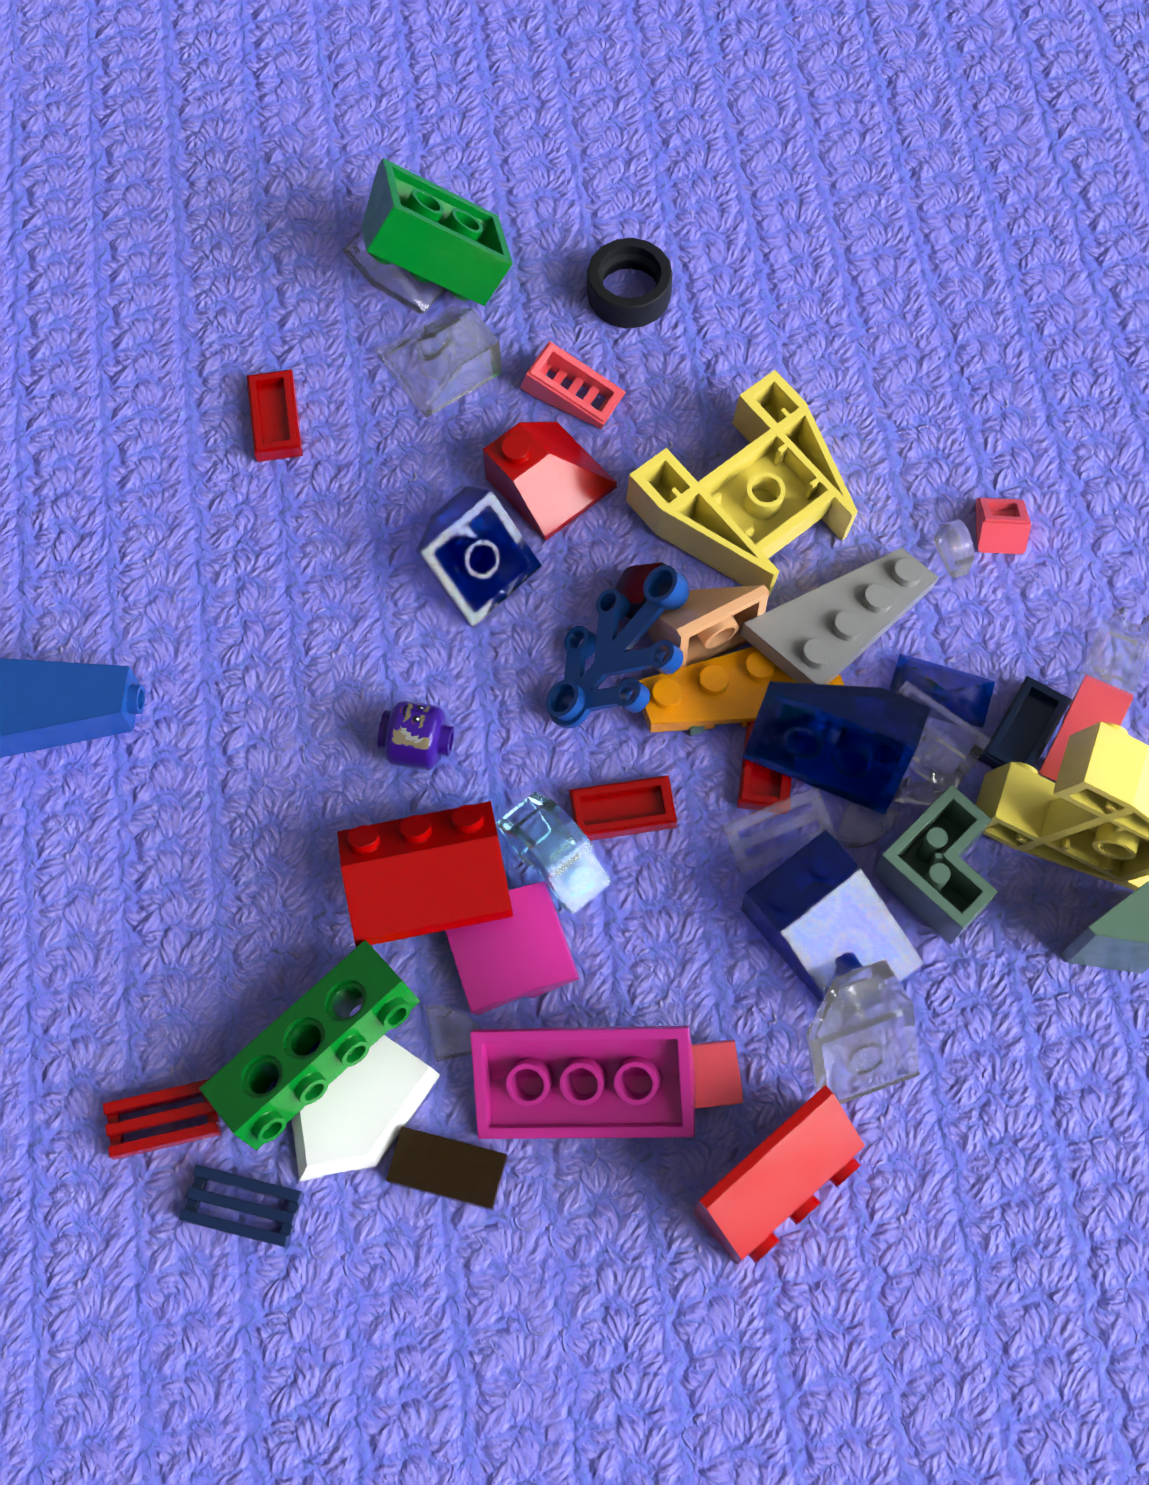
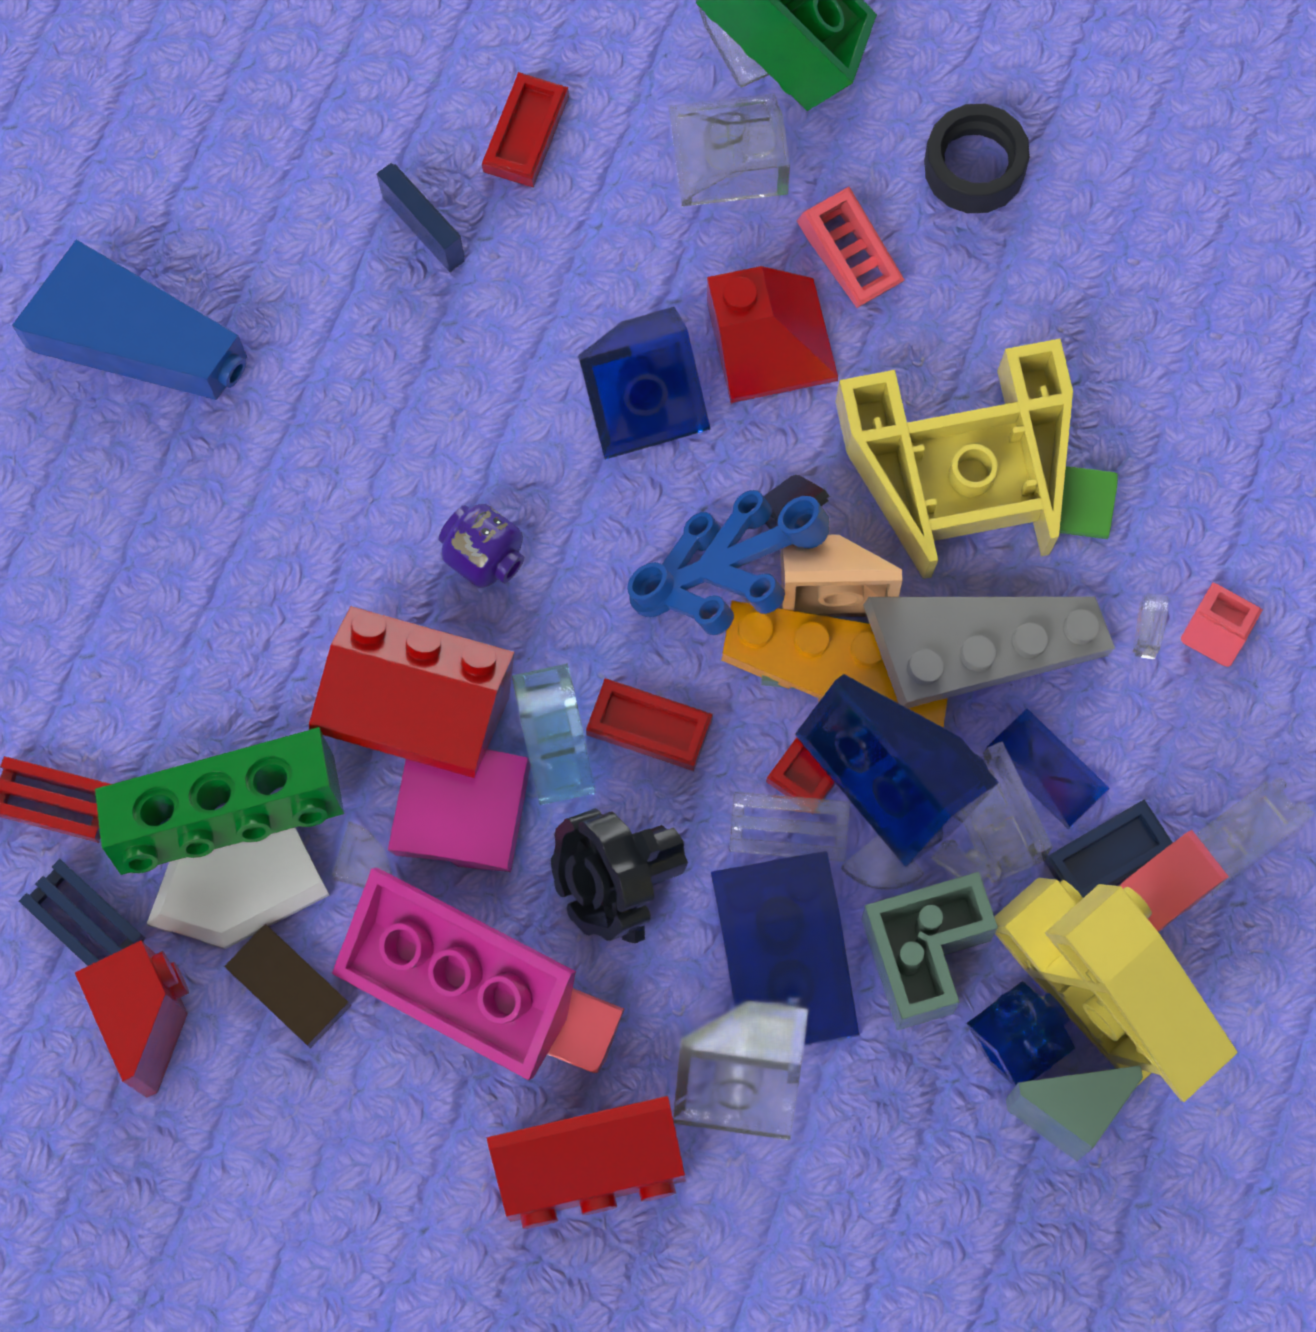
camera: 30 degrees right, 5 degrees up
(228, 512) = (421, 216): none -> dark blue tile
(334, 1255) = (137, 1011): none -> red slope
(665, 935) = (612, 872): none -> black piece
(860, 480) = (1088, 502): none -> bright green slope
(1051, 895) = (1022, 1033): none -> clear blue brick

